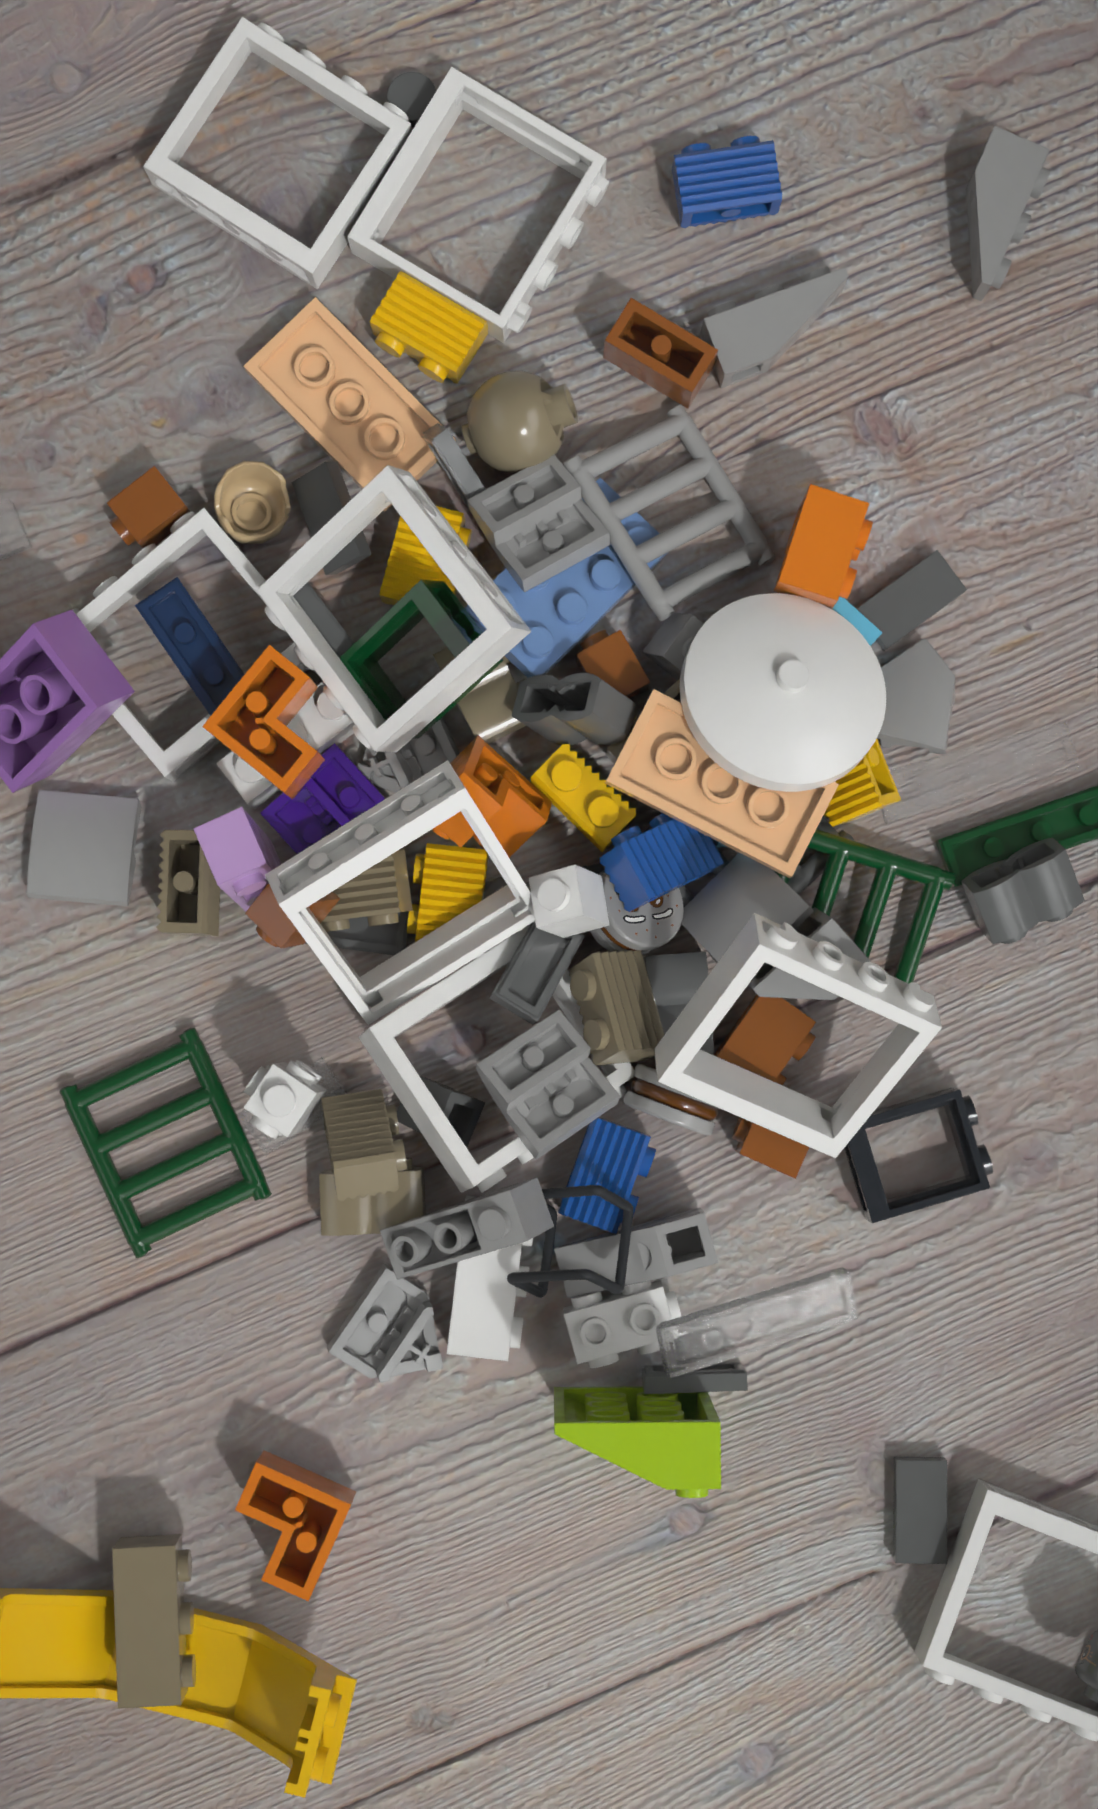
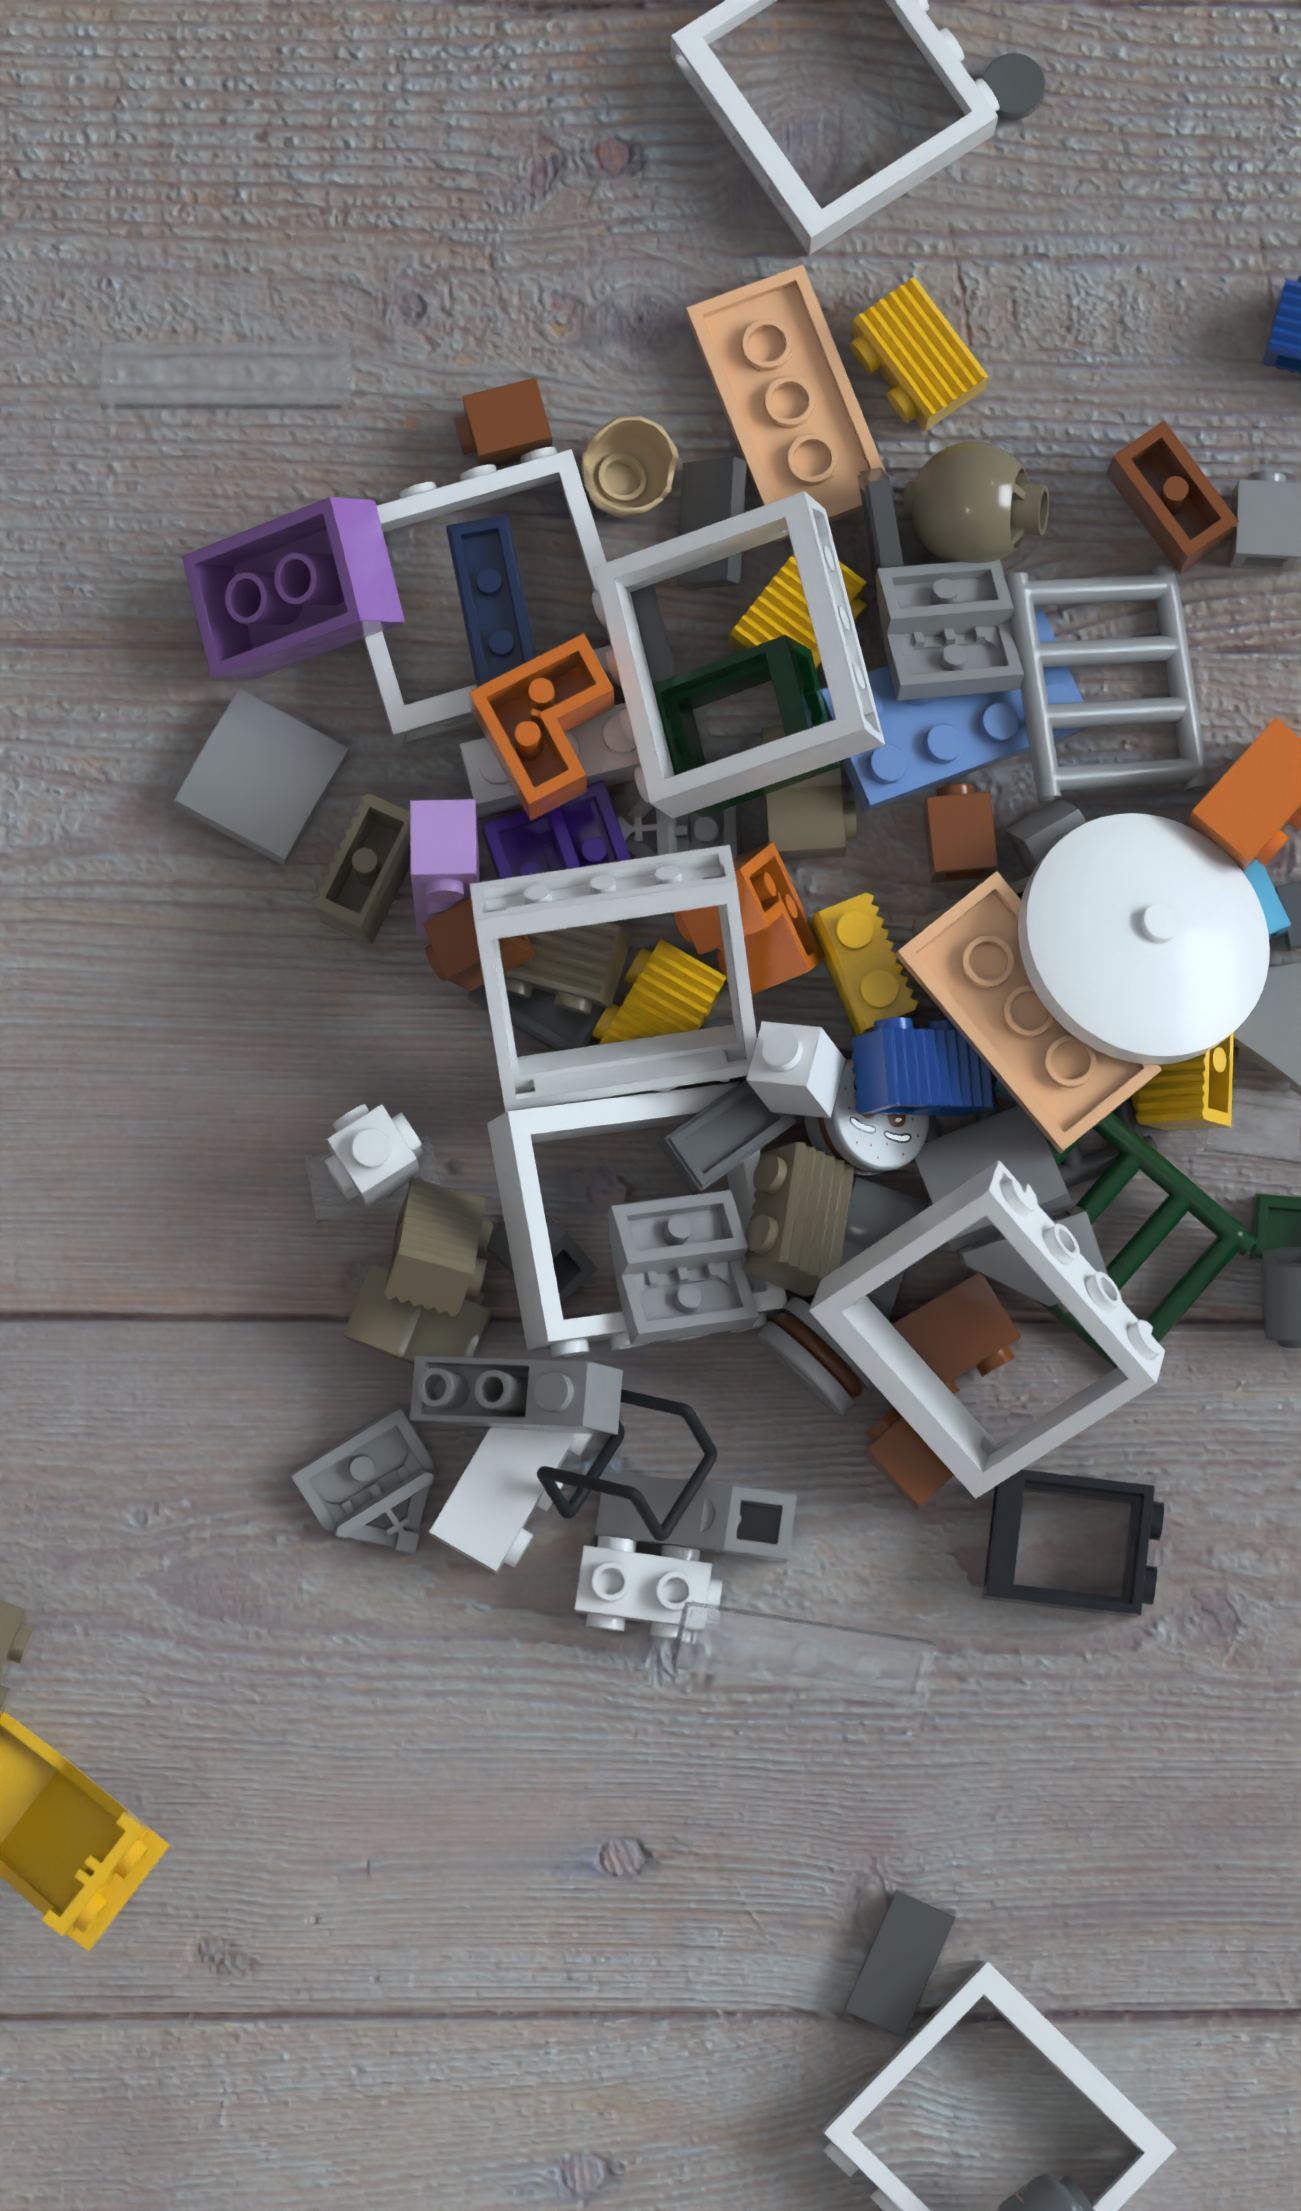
camera: 20 degrees right, 5 degrees down
(99, 1145) = (128, 1126): dark green bar -> none
(305, 1510) = (188, 1655): orange brick -> none
(454, 95) = (1059, 104): white window -> none
(574, 709) = (896, 857): dark grey brick -> none
(612, 1159) = (724, 1396): blue brick -> none
(654, 1436) = (635, 1713): lime slope -> none
(712, 1378) = (702, 1690): dark grey tile -> none

